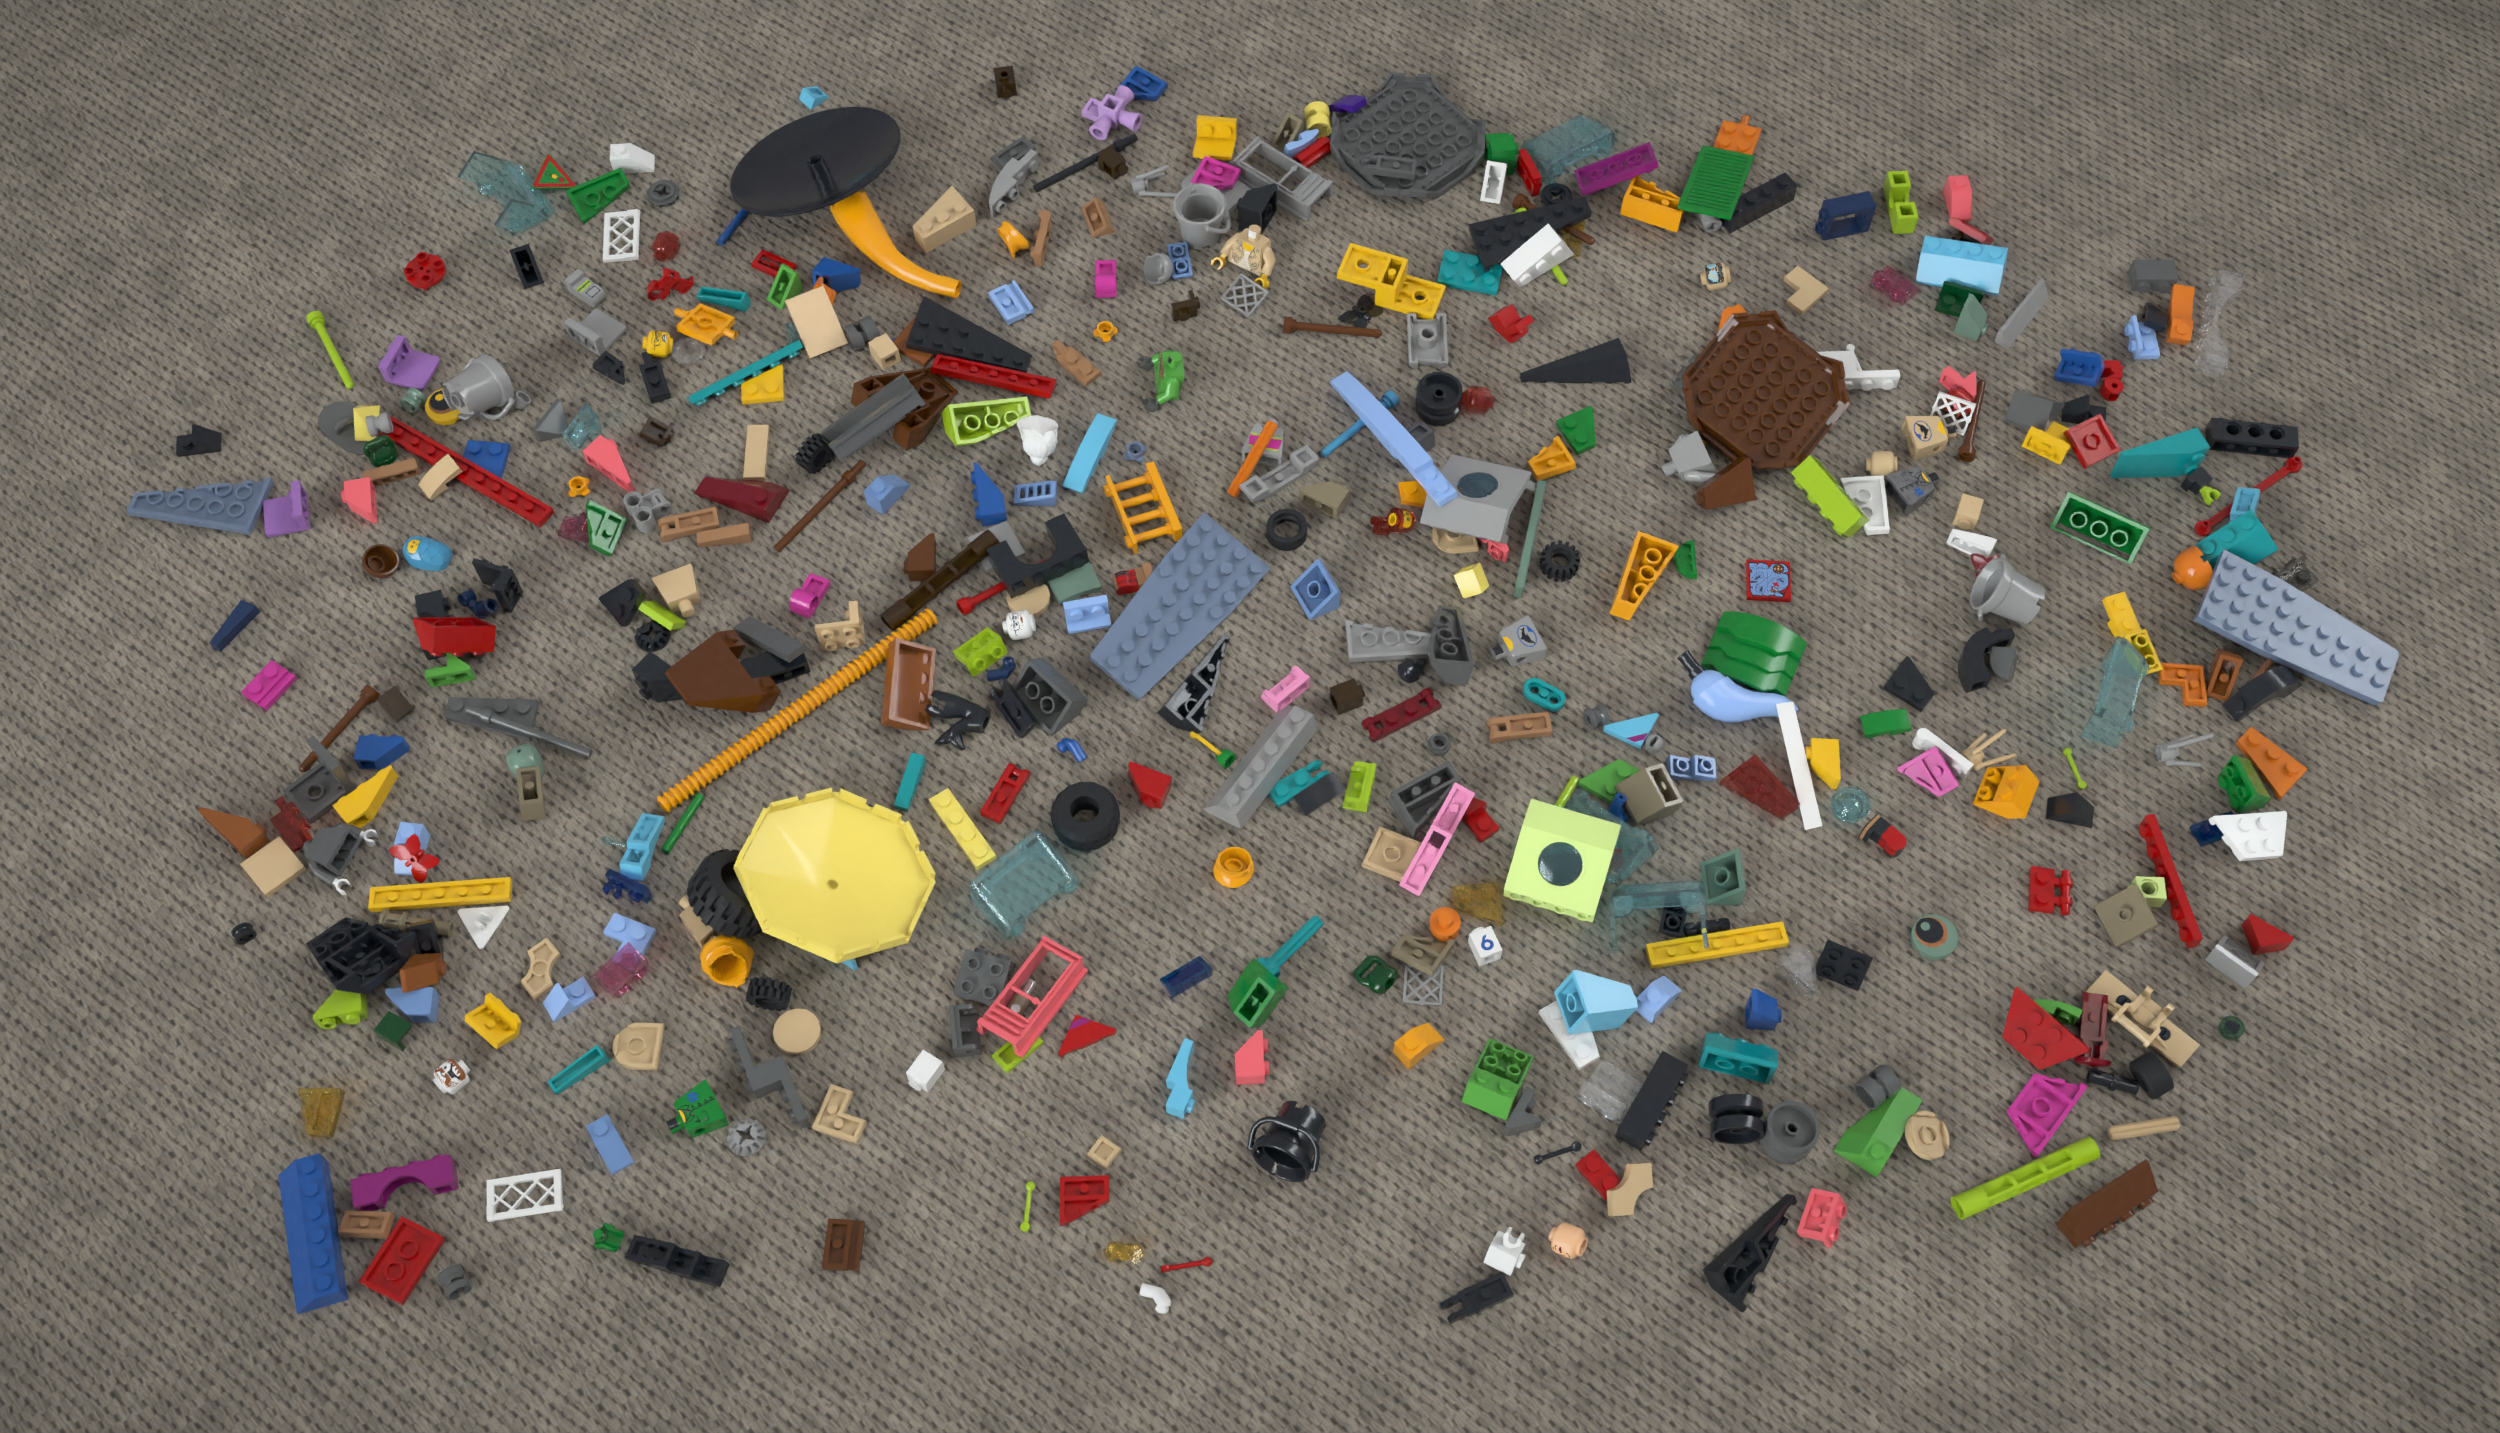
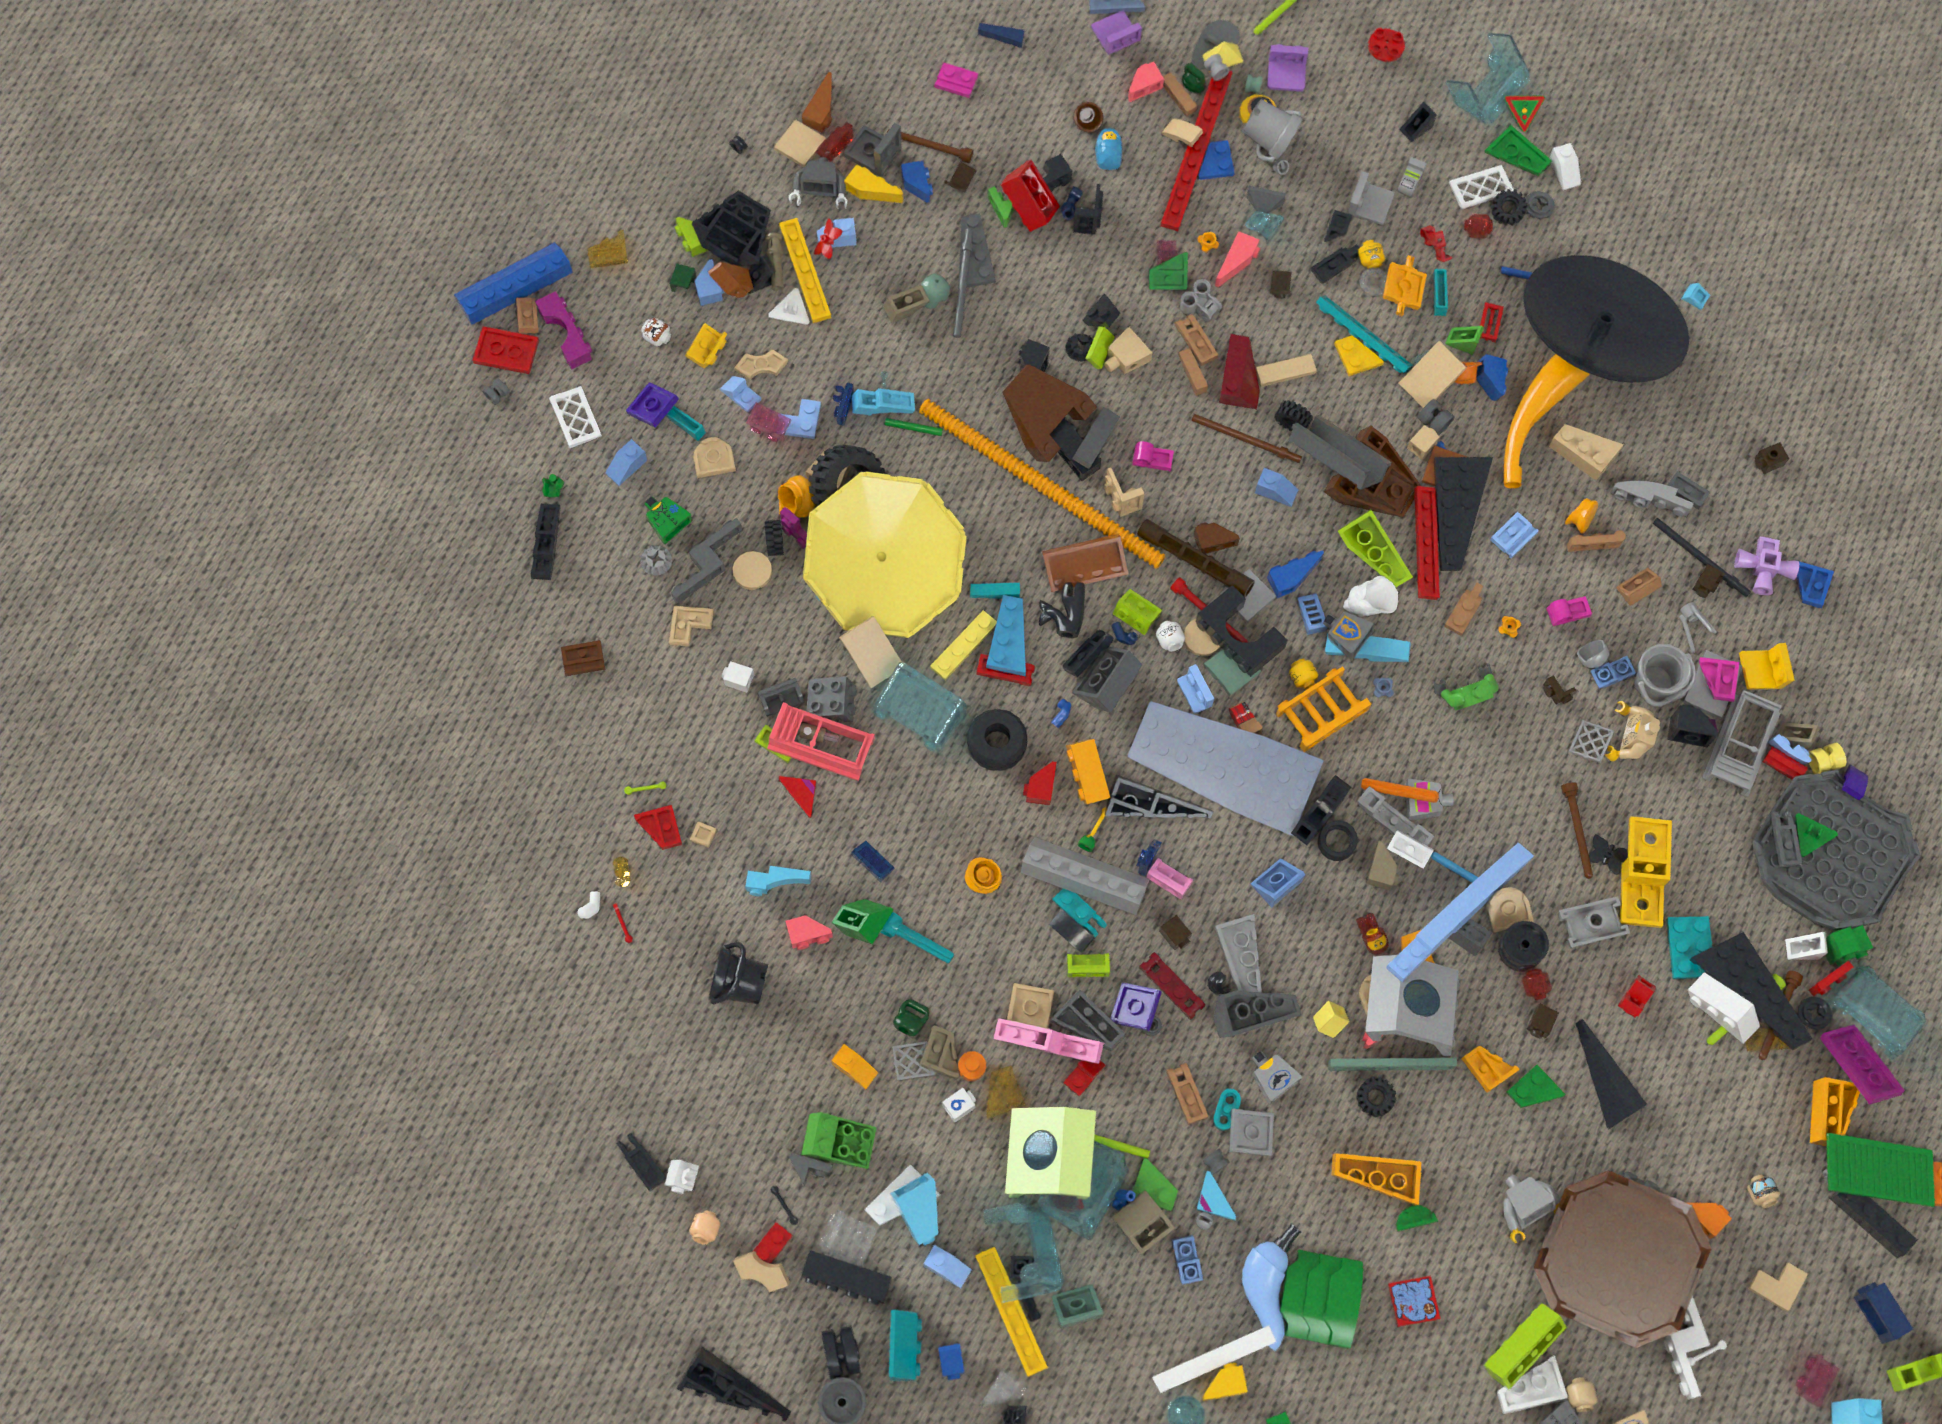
camera: 75 degrees right, 10 degrees up
(545, 1099) = (652, 404): none -> dark purple plate
(655, 206) = (1511, 196): none -> black tyre
(760, 967) = (792, 527): none -> magenta plate
(943, 919) = (871, 651): none -> tan tile
(973, 779) = (1008, 643): none -> dark azure wing
(1072, 460) = (1348, 633): none -> flat silver torso
(1099, 516) = (1303, 673): none -> yellow head
(1145, 735) = (1087, 771): none -> light orange wedge
(1251, 533) = (1321, 811): none -> black arch
(1261, 699) = (1147, 856): none -> clear blue wing
(1316, 465) = (1410, 849): none -> white panel
(1388, 145) = (1811, 834): none -> green piece
(1399, 400) = (1508, 907): none -> tan tile
(1416, 750) = (1135, 1006): none -> plate
(1515, 404) = (1542, 1021): none -> dark brown brick
(1573, 677) = (1251, 1132): none -> light grey tile
(1728, 486) = (1504, 1242): reddish brown slope -> none
(1761, 787) = (1183, 1328): clear red wing -> none

